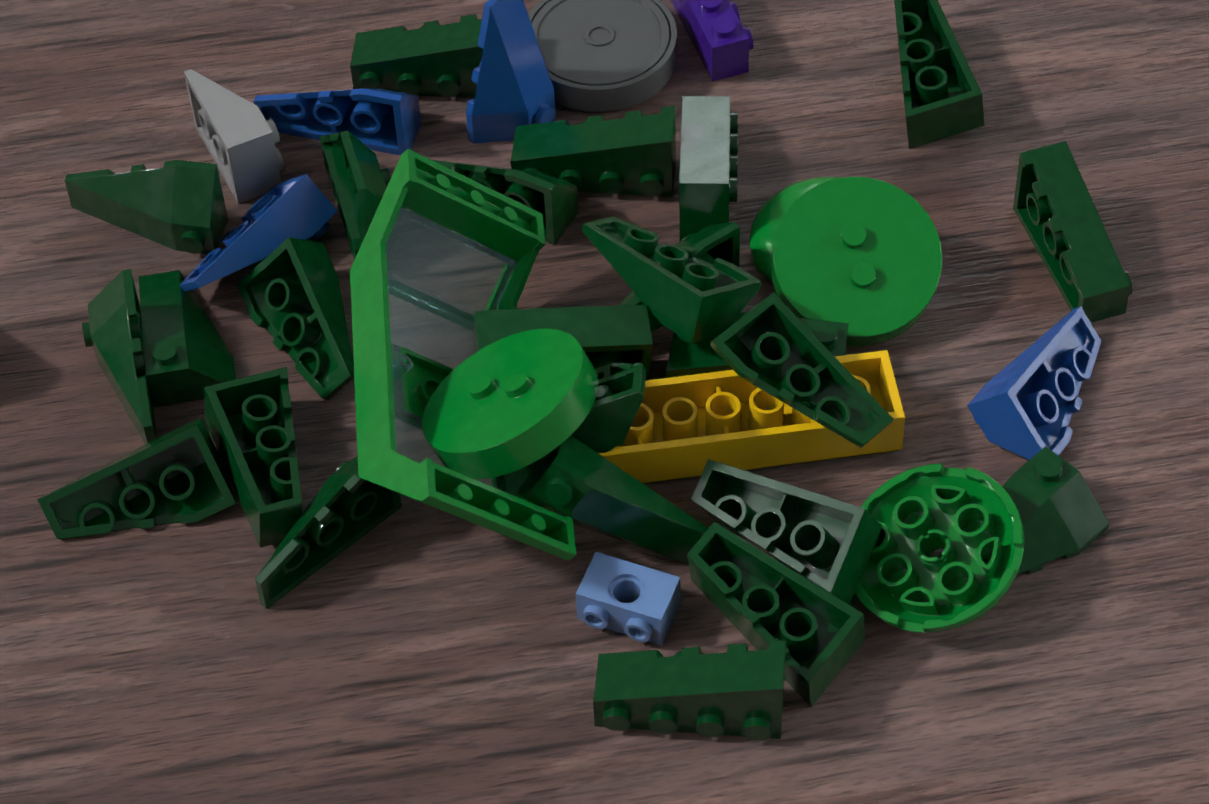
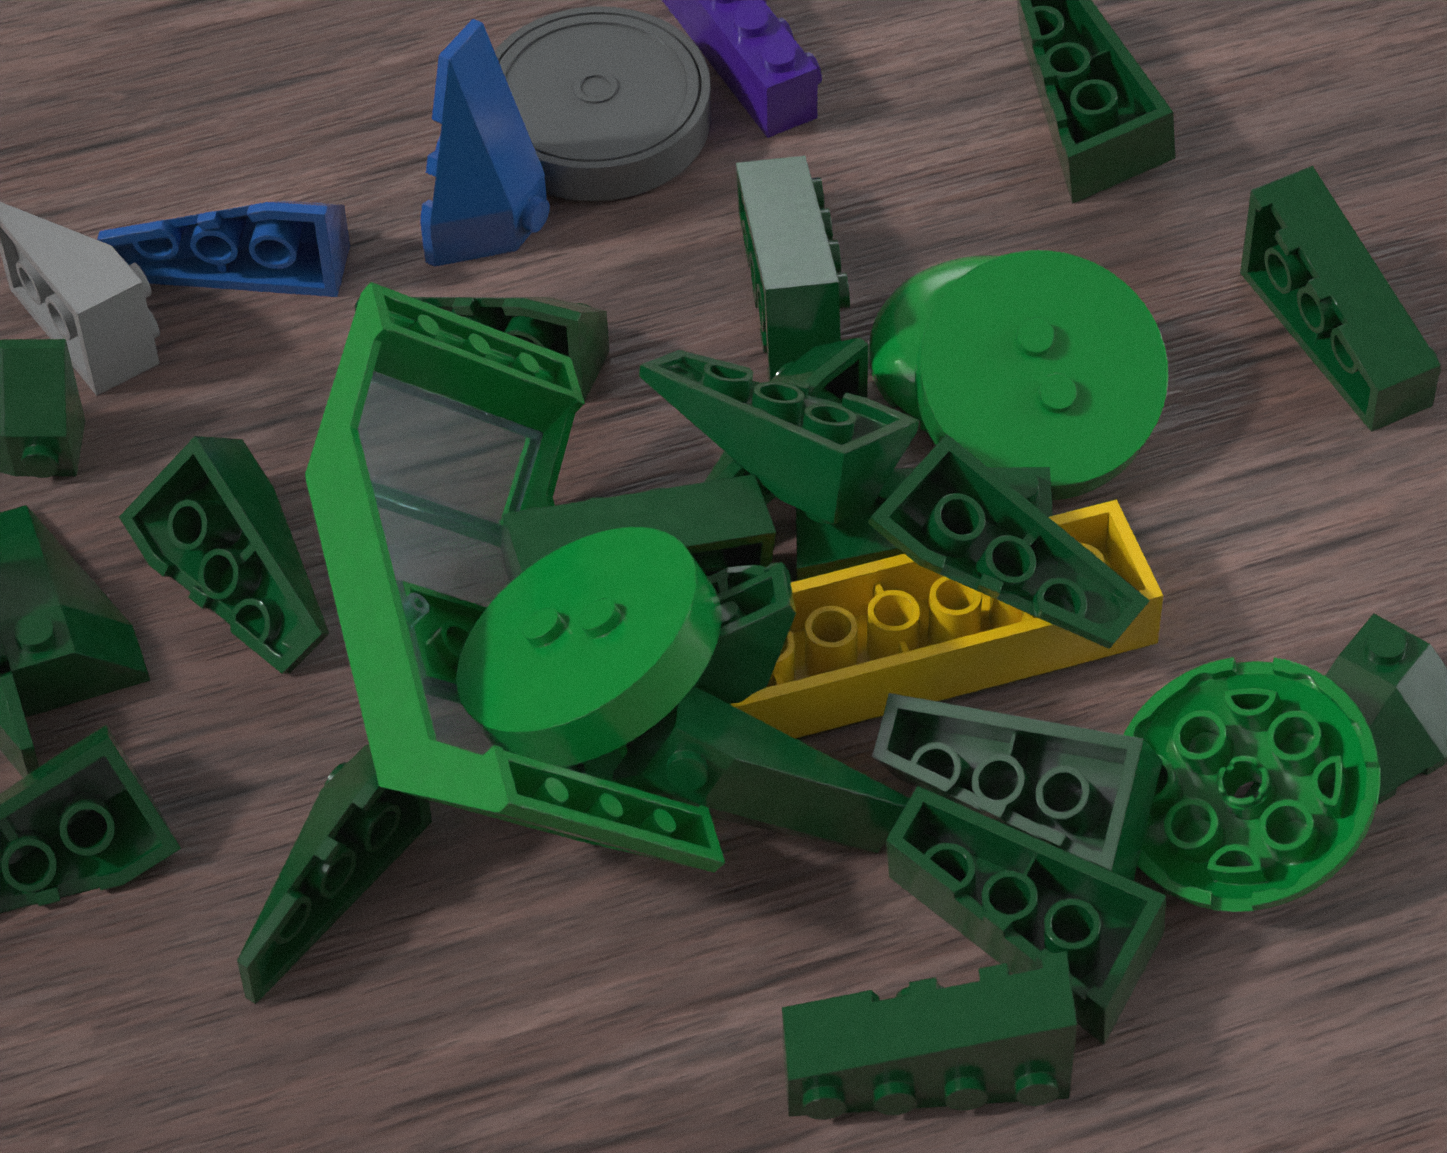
camera: 10 degrees left, 0 degrees up
(257, 446) = (204, 764): dark green wedge -> none
(286, 210) = (152, 420): blue wedge -> none
(355, 182) = (279, 356): dark green wedge -> none
(420, 60) = (340, 152): dark green wedge -> none
(603, 156) = (635, 262): dark green wedge -> none
(613, 581) = (783, 891): medium blue brick -> none
(1039, 390) = (1334, 537): blue wedge -> none

